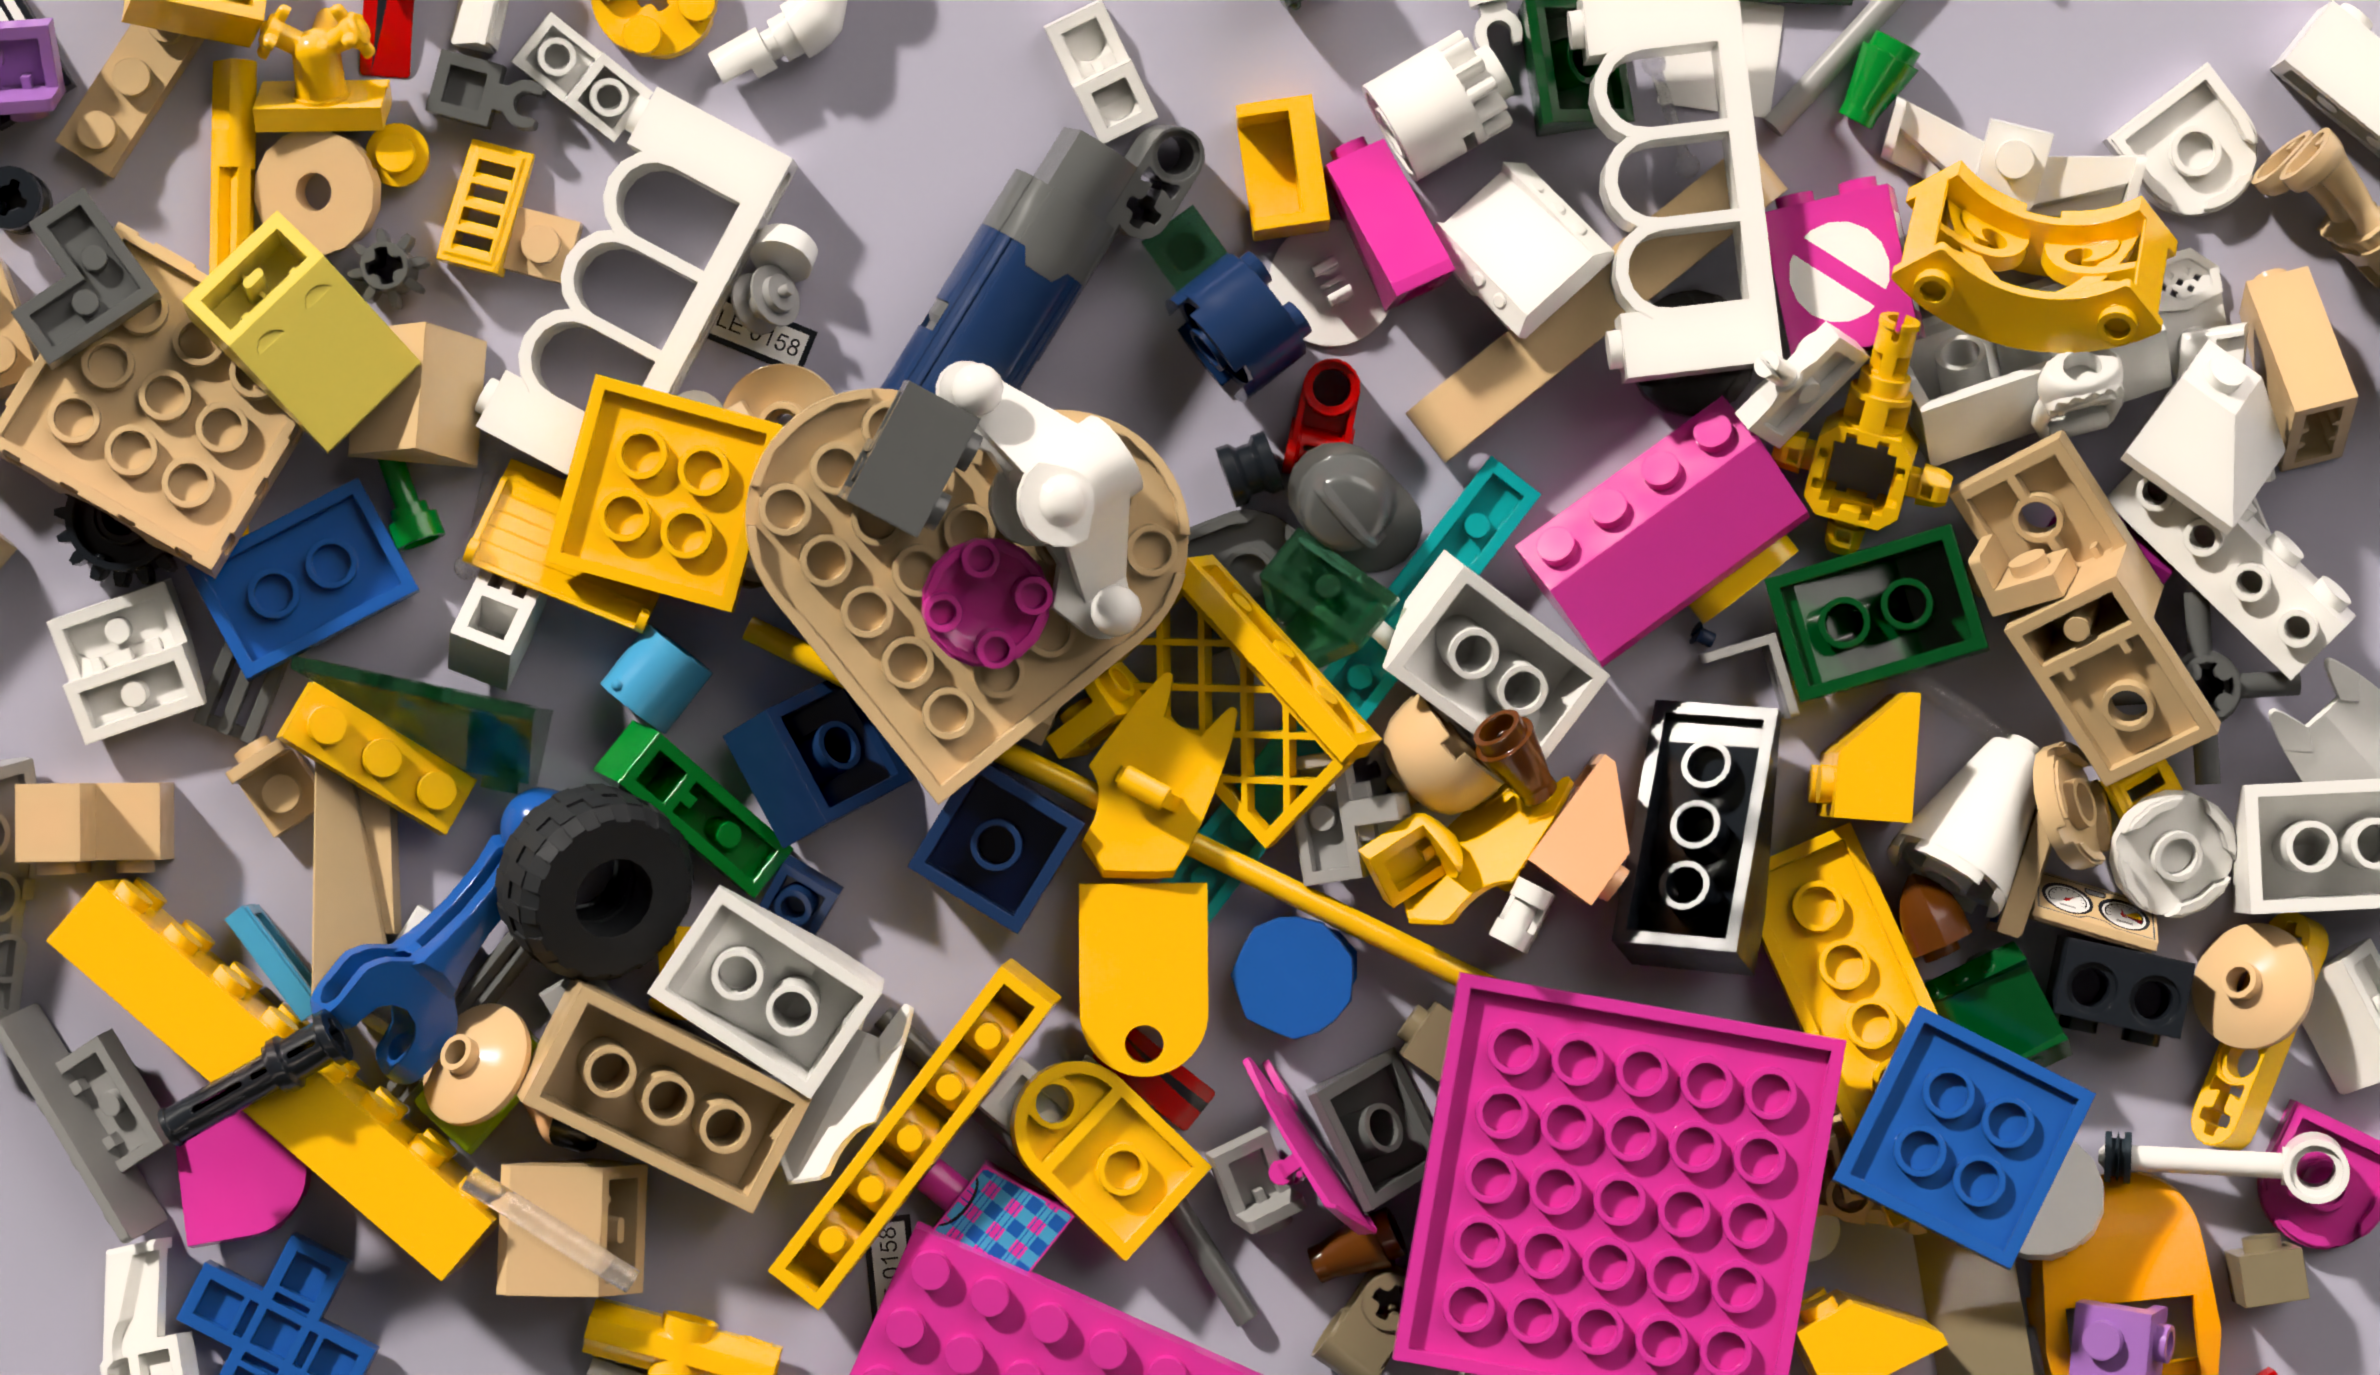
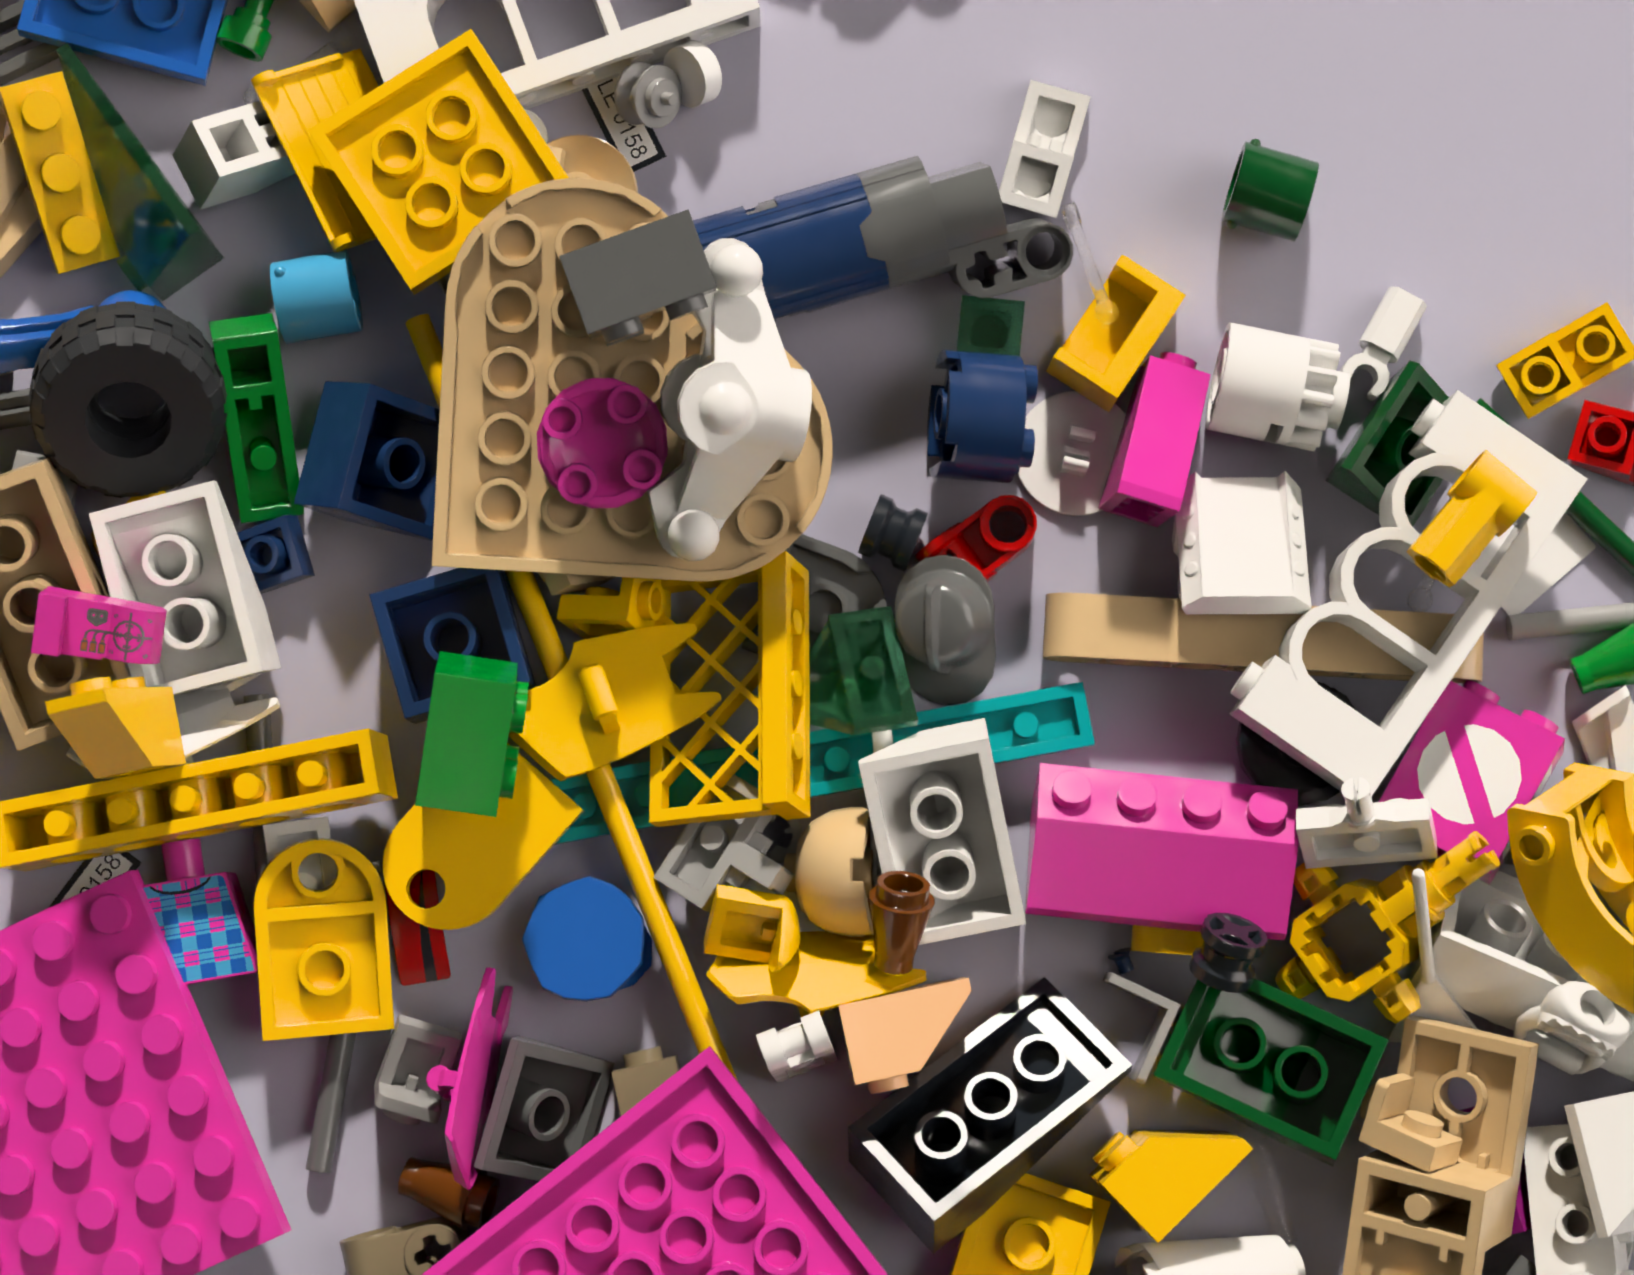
camera: 40 degrees right, 5 degrees down
(736, 1069) = (97, 627): none -> dark pink leg
(821, 1126) = (119, 726): none -> yellow slope
(1080, 902) = (467, 734): none -> green brick
(1259, 156) = (1105, 310): none -> clear hinge
(1676, 65) = (1480, 506): none -> yellow piece
(1777, 564) = (1228, 952): none -> black wheel
(1955, 459) = (1434, 997): none -> white piece

